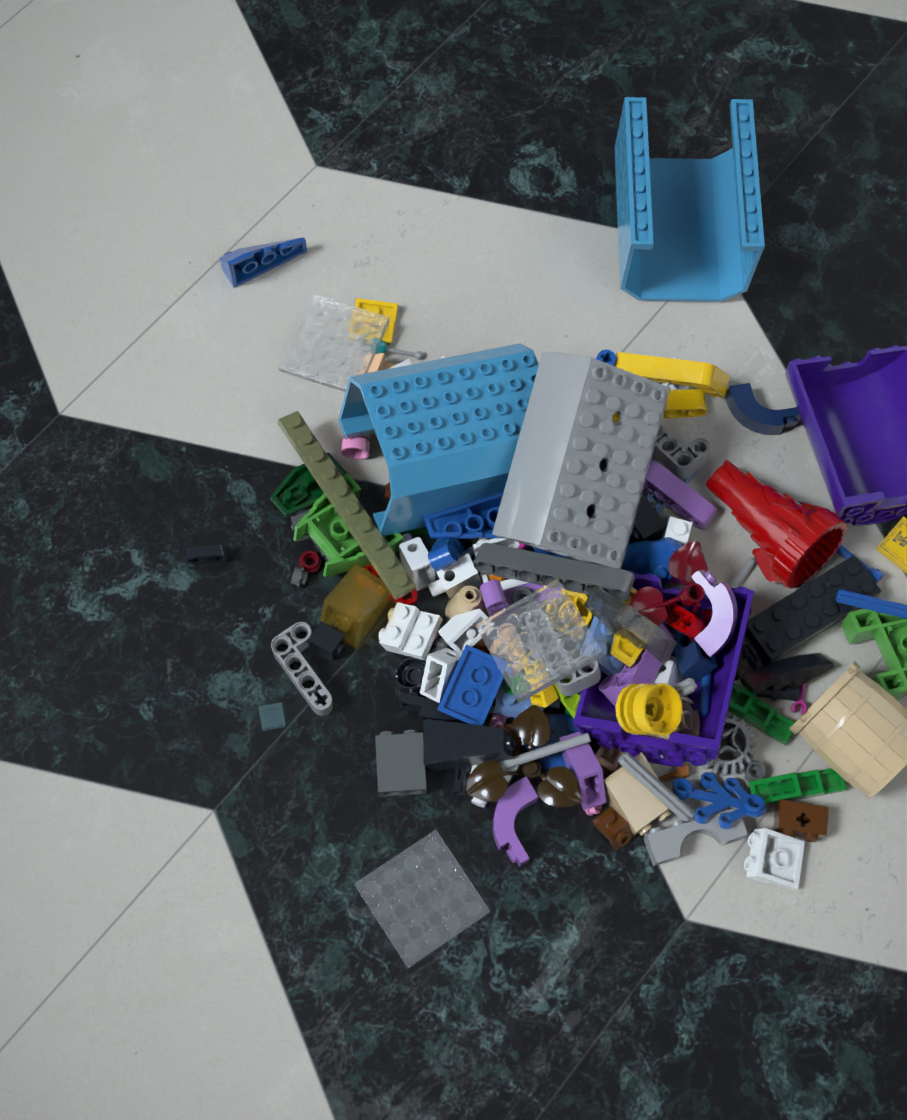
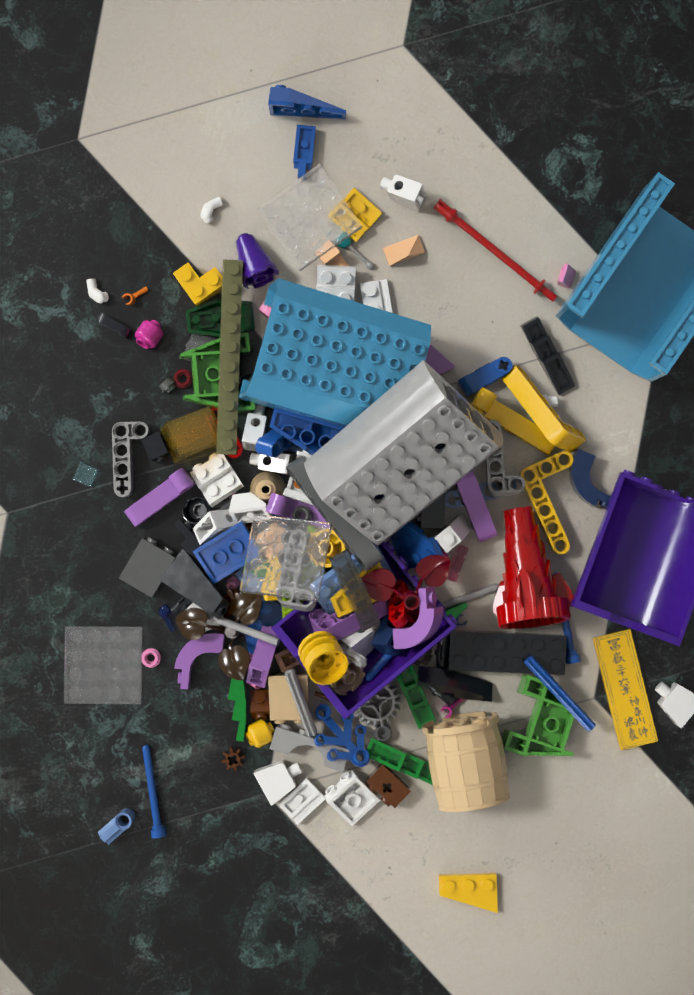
camera: 35 degrees right, 20 degrees up
(168, 538) = (95, 293): none -> white arm
(209, 516) = (135, 295): none -> orange hand
(230, 396) = (206, 213): none -> white arm
(248, 540) = (149, 334): none -> dark pink head
(267, 468) = (198, 288): none -> yellow brick
(286, 294) = (304, 148): none -> blue hinge
(314, 410) = (257, 265): none -> dark purple cone
(359, 701) = (160, 497): none -> medium lavender beam
(406, 272) = (404, 191): none -> white torso
(440, 325) = (403, 250): none -> light nougat slope
(447, 801) = (164, 611): none -> clear blue hand
(462, 269) = (452, 216): none -> red bar
(467, 849) = (147, 662): none -> bright pink plate
(556, 1069) = (116, 826): none -> medium blue piece
(583, 830) = (238, 694): none -> green slope
(601, 258) = (566, 276): none -> bright pink slope
(602, 1038) = (158, 829): none -> blue piece
(631, 897) = (228, 757): none -> reddish brown gear
(634, 857) = (259, 733): none -> yellow head
(640, 332) = (547, 355): none -> black slope
(687, 893) = (277, 779): none -> white torso
(728, 899) = (302, 800): none -> white plate
(736, 452) = (544, 499): none -> yellow beam

